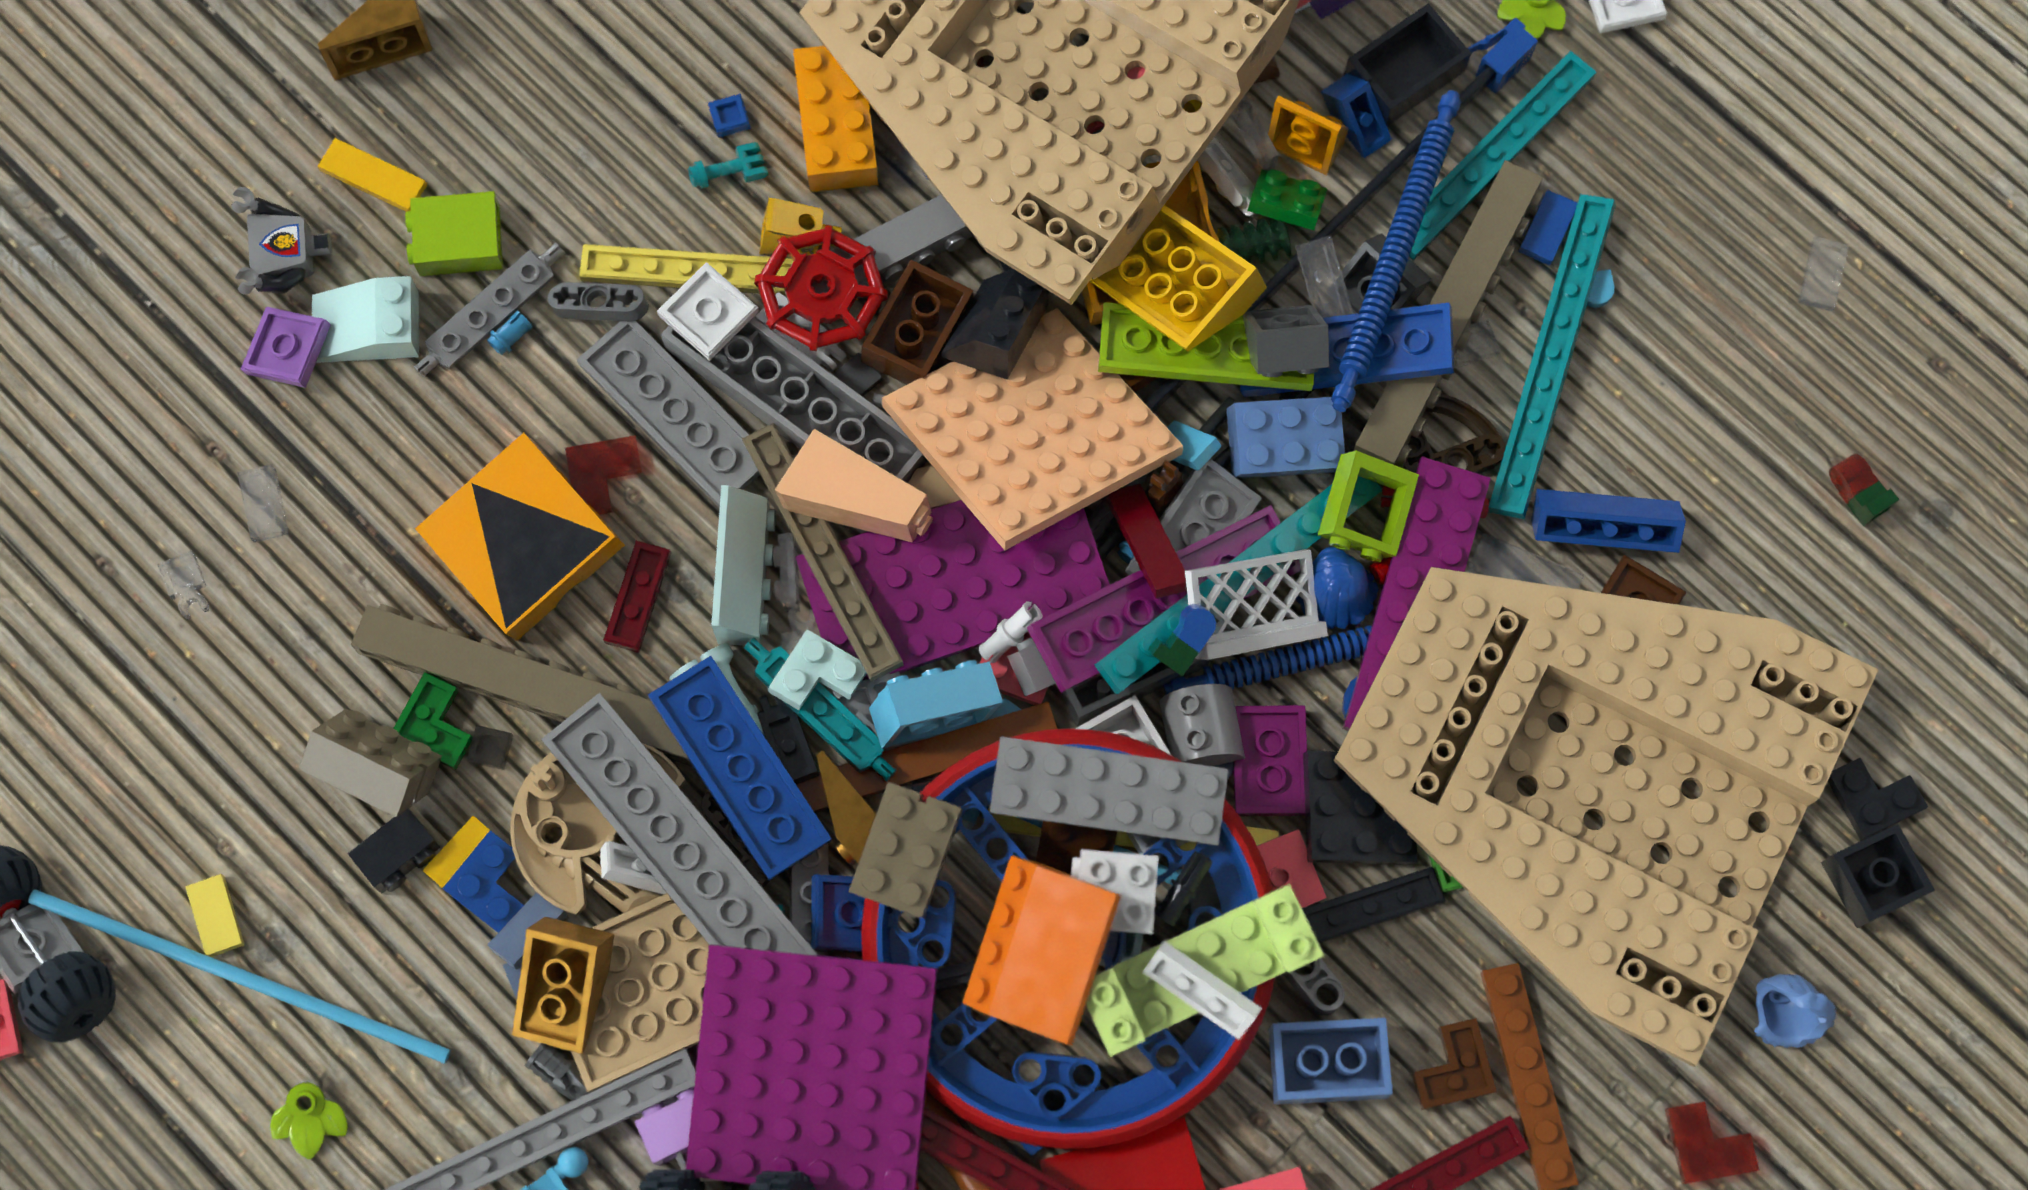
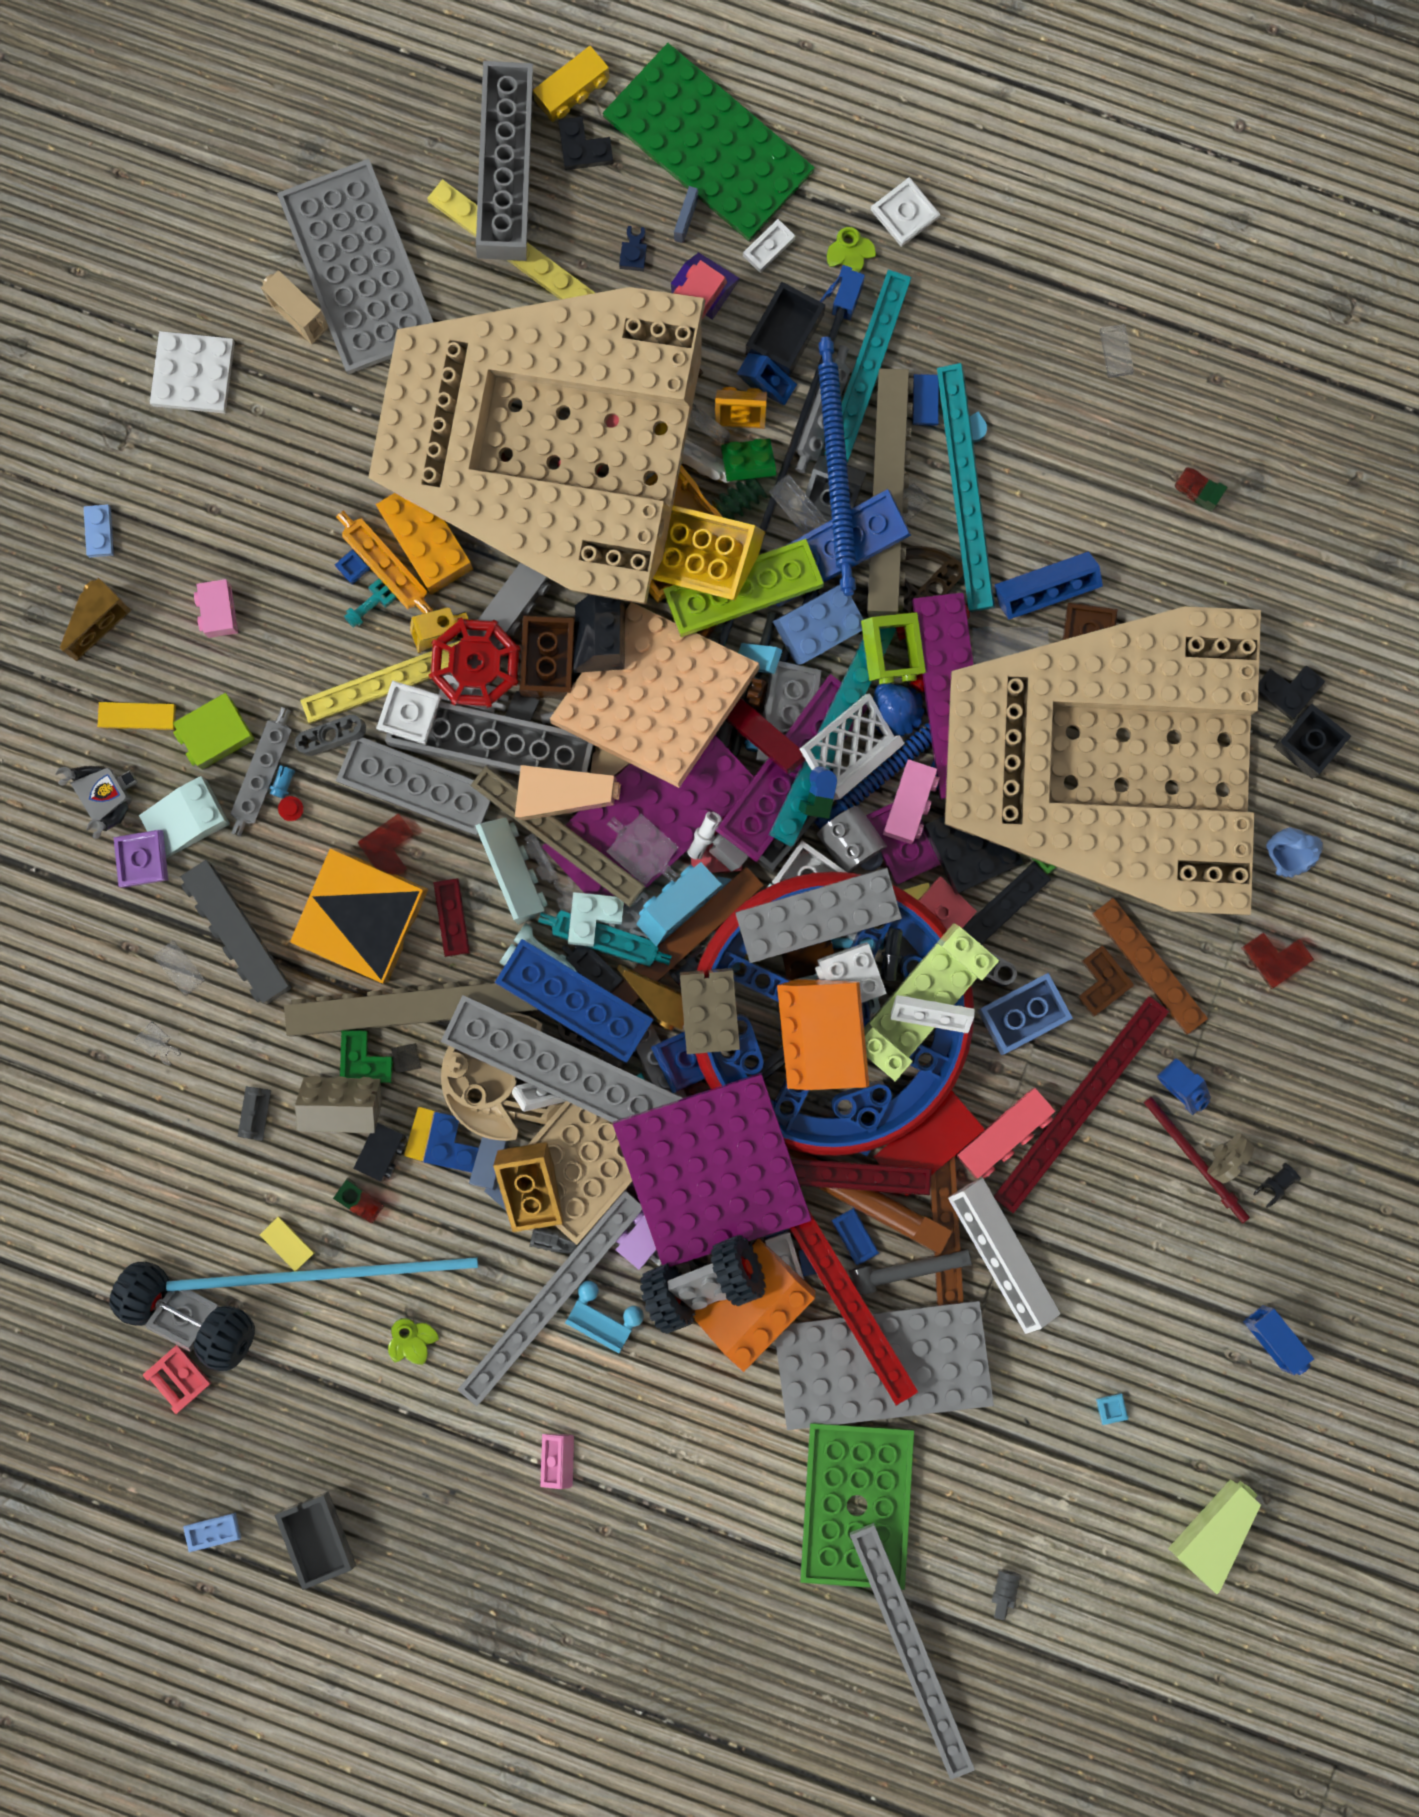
camera: 20 degrees left, 10 degrees up
(261, 727) = (254, 1113): none -> dark grey hinge
(333, 901) = (358, 1201): none -> leg
(355, 490) = (236, 933): none -> dark grey brick
(503, 370) = (290, 808): none -> red plate
(536, 90) = (216, 608): none -> bright pink brick
(769, 125) = (384, 563): none -> light orange plate
(922, 614) = (642, 849): none -> clear plate
(1287, 340) = (794, 561): dark grey slope -> none
(1302, 713) = (911, 802): none -> bright pink brick
(1379, 210) = (812, 436): none -> light grey plate

